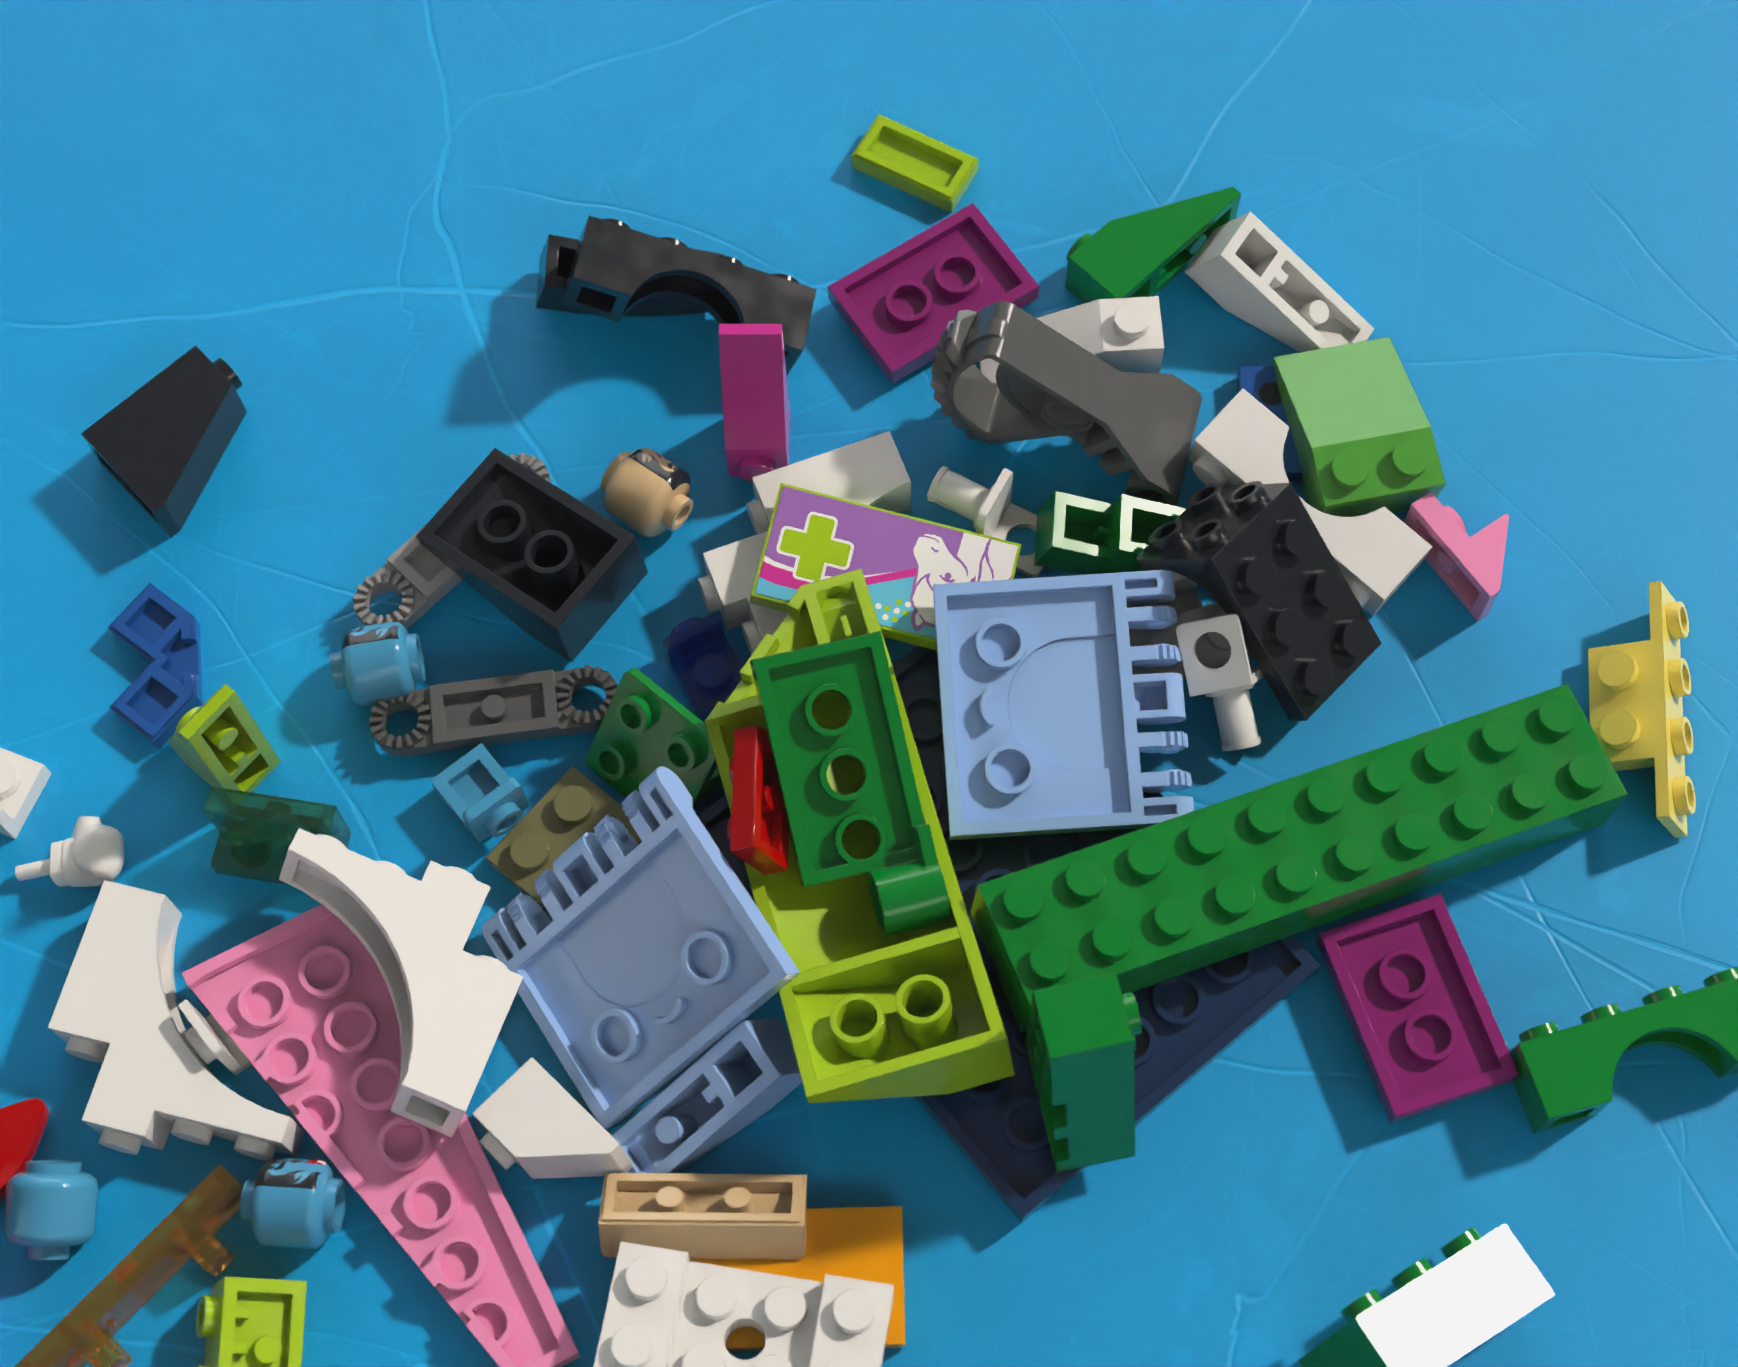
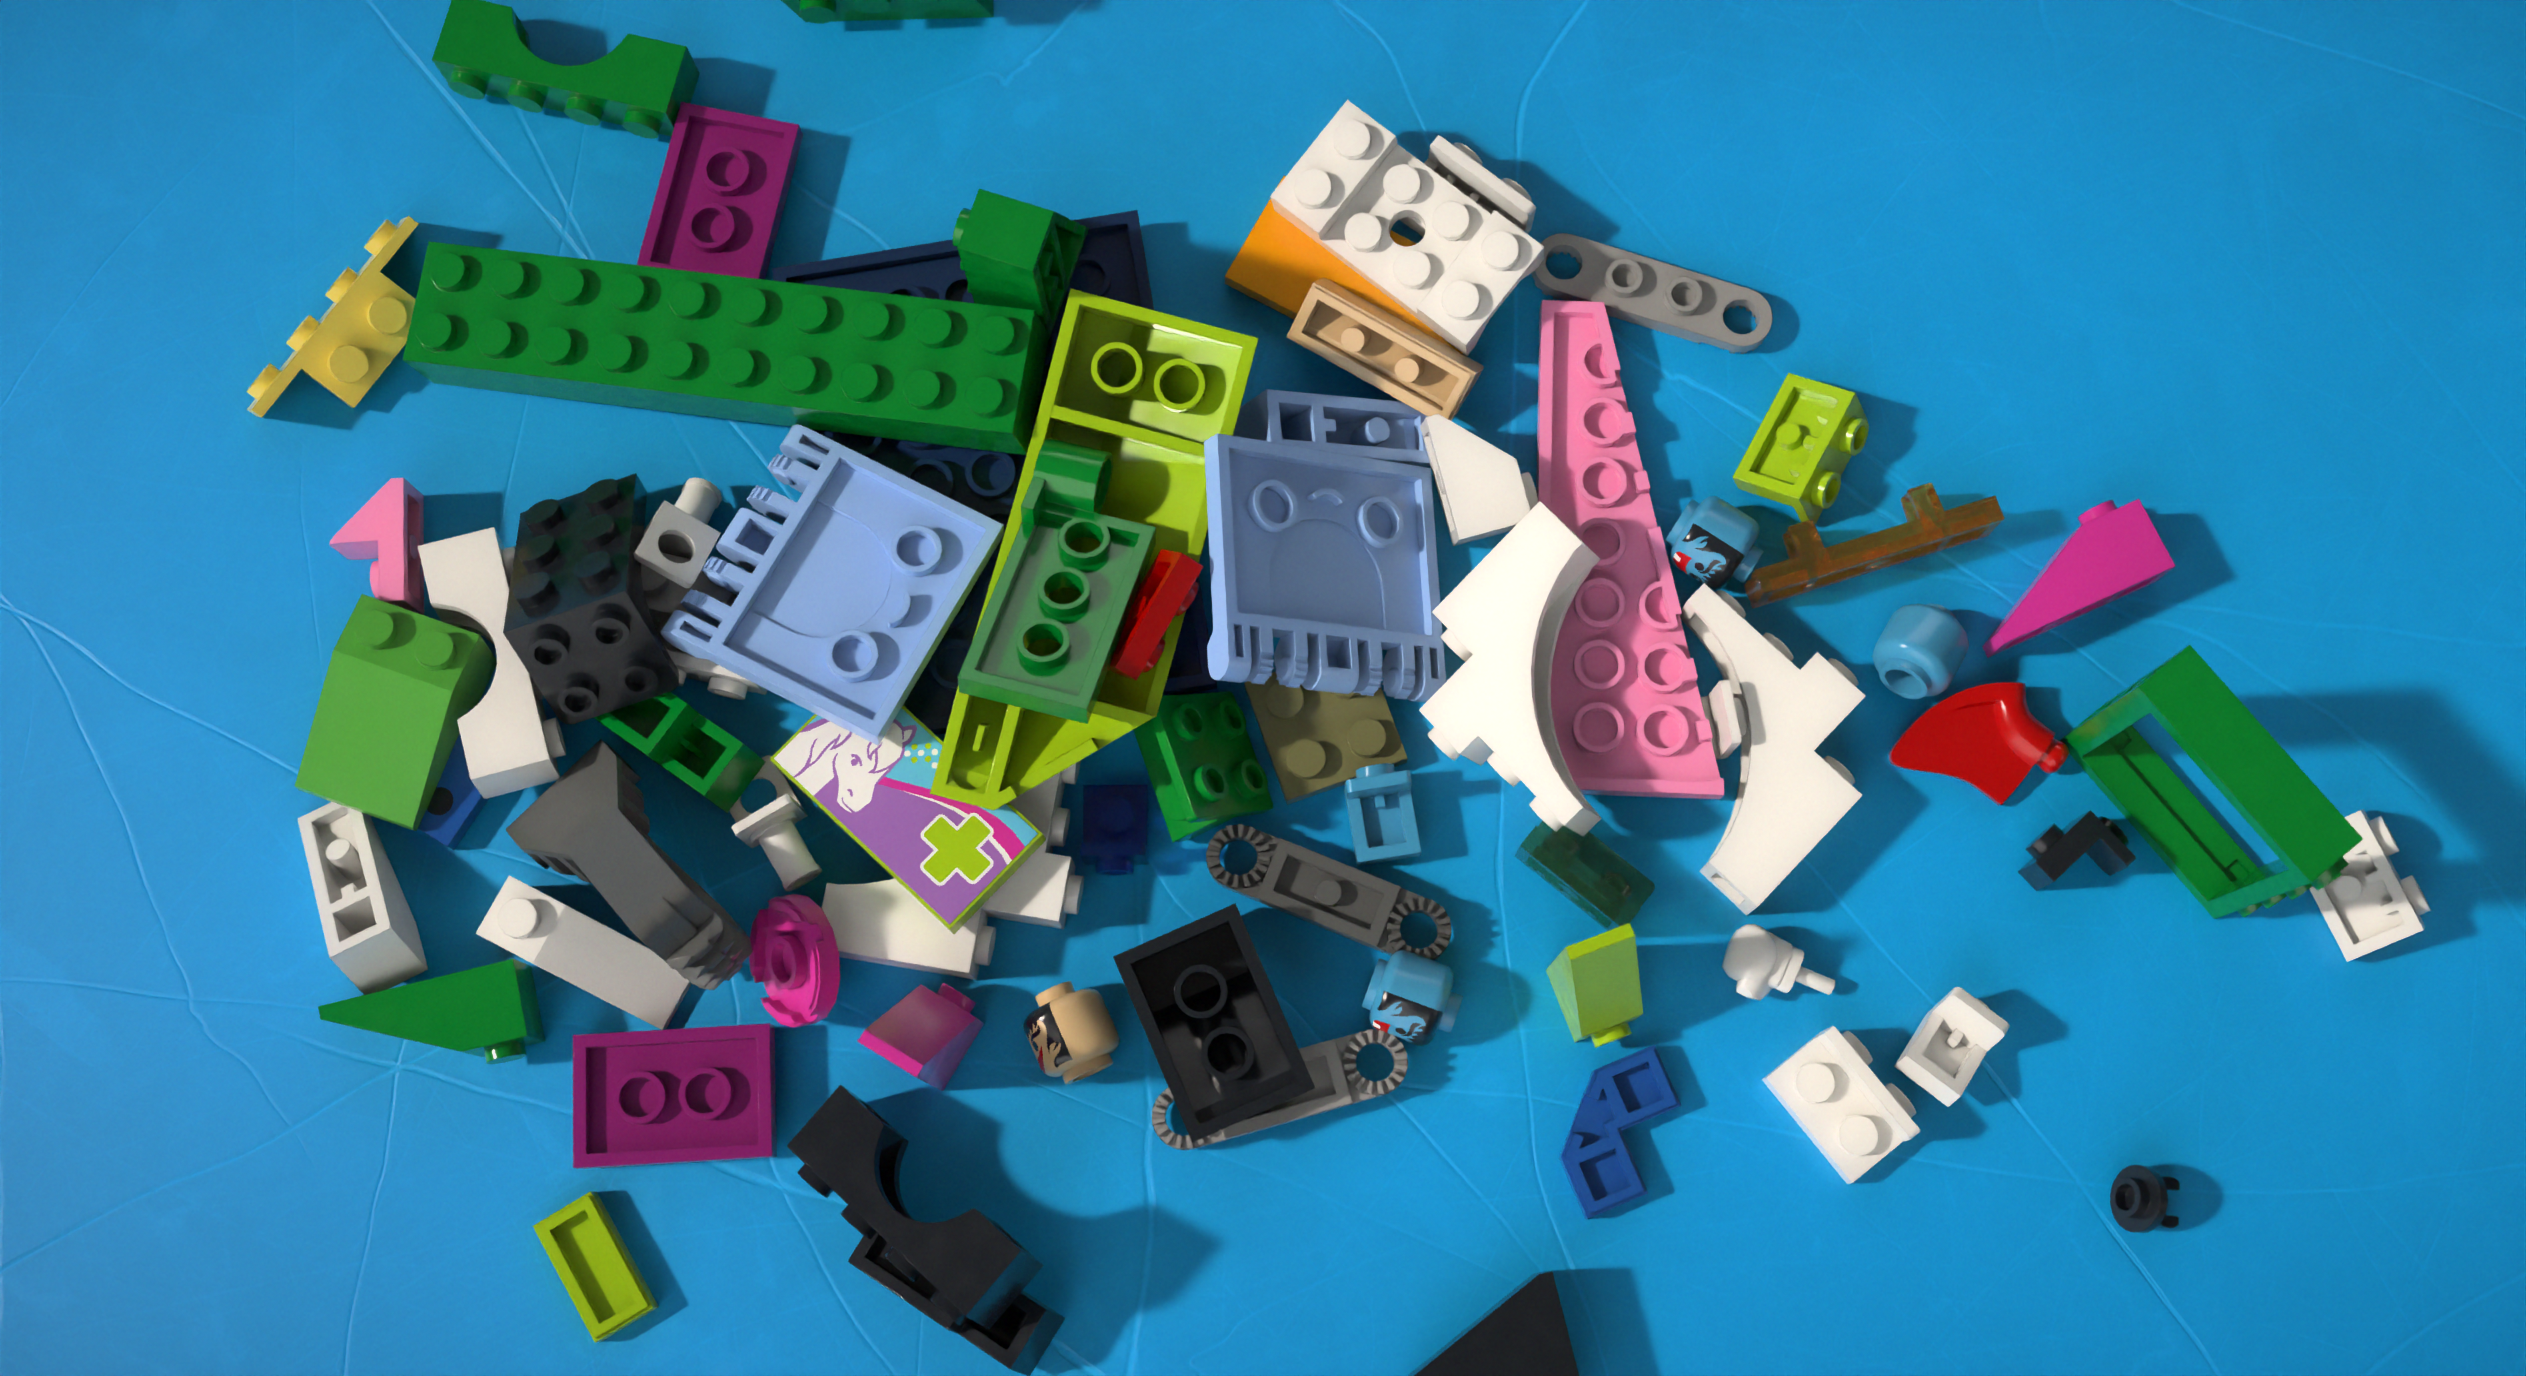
camera: 150 degrees left, 10 degrees up
(892, 416) = (795, 960): none -> dark pink tile

